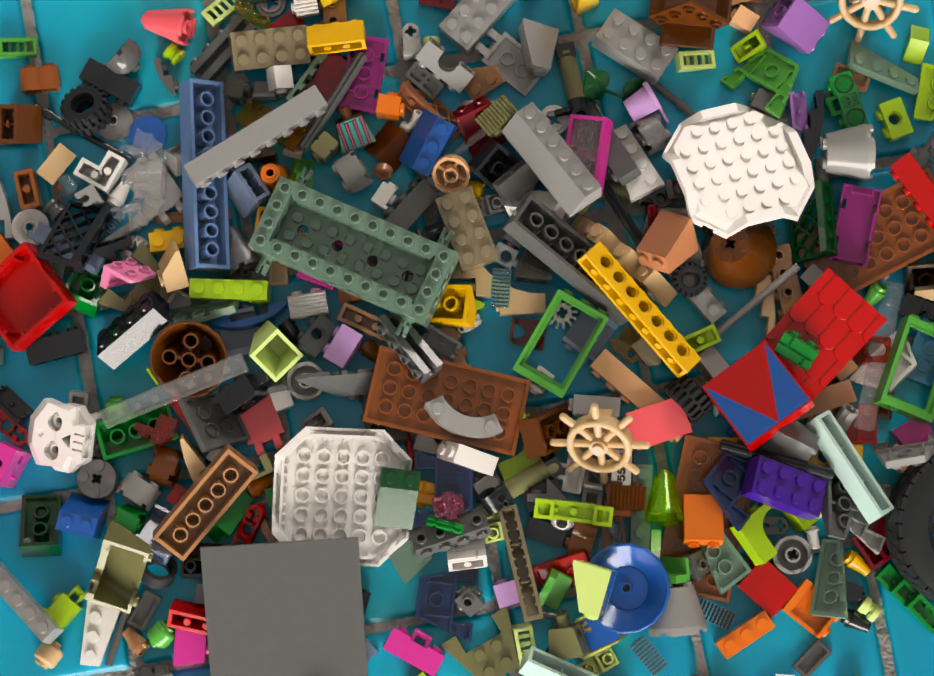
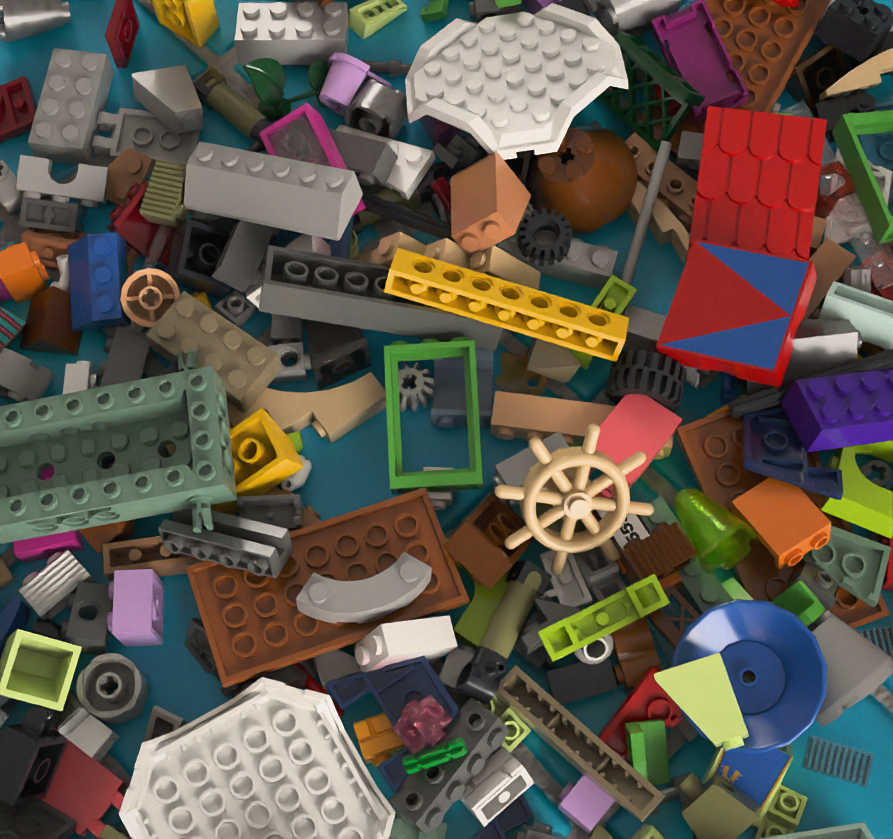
camera: 30 degrees left, 15 degrees down
(340, 383) = (158, 656): dark grey wedge -> none
(369, 350) = (179, 592): dark orange cone -> none
(383, 171) = (59, 355): nougat tile -> none
(396, 498) = (340, 763): slope -> none
(500, 288) = (307, 399): clear light blue tile -> none
(529, 326) = (378, 430): clear red piece -> none
(797, 350) = (743, 227): green brick -> none

